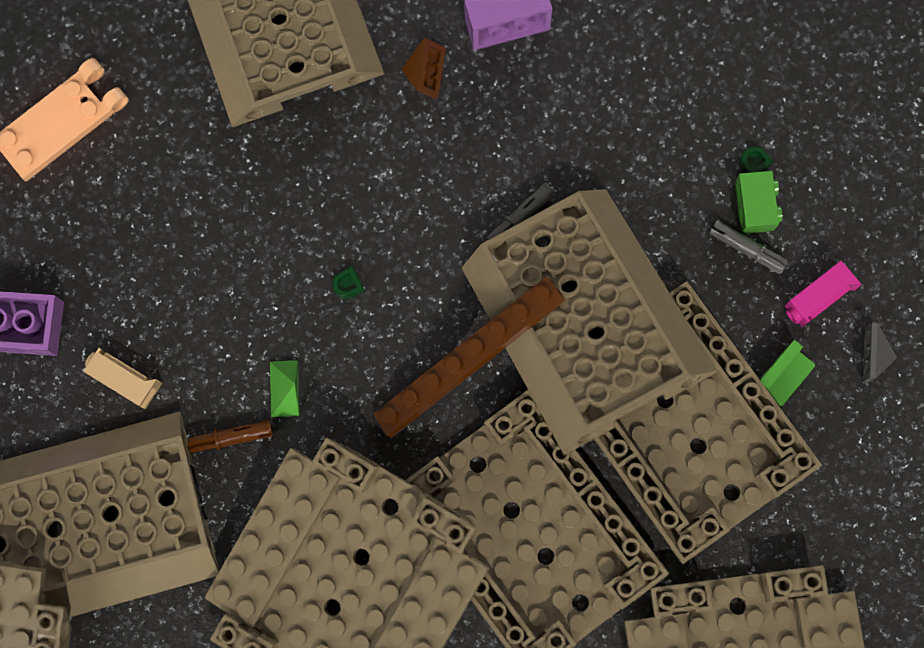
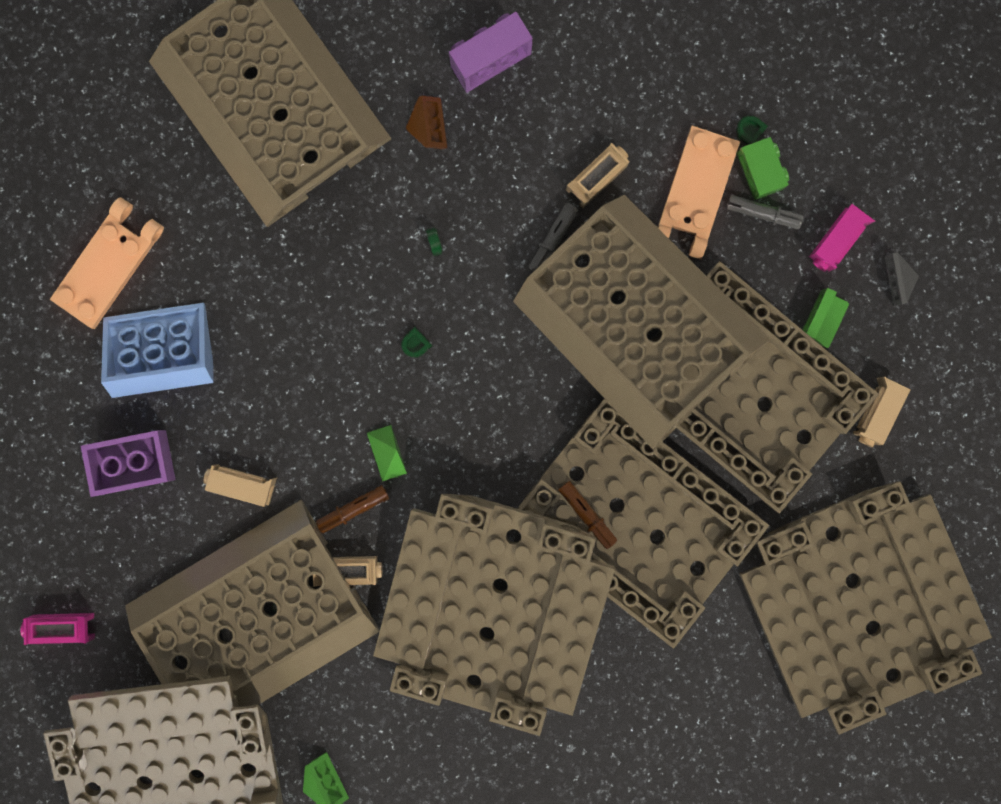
camera: 15 degrees left, 10 degrees up
(80, 219) = (156, 350): none -> light blue slope
(215, 502) = (356, 570): none -> tan window
(397, 186) = (434, 241): none -> dark green tile
(469, 356) = (546, 383): reddish brown plate -> none
(476, 509) = (588, 515): none -> reddish brown axle
(585, 163) = (598, 174): none -> tan window
(686, 203) = (698, 186): none -> light nougat hinge
(821, 488) = (882, 412): none -> tan window

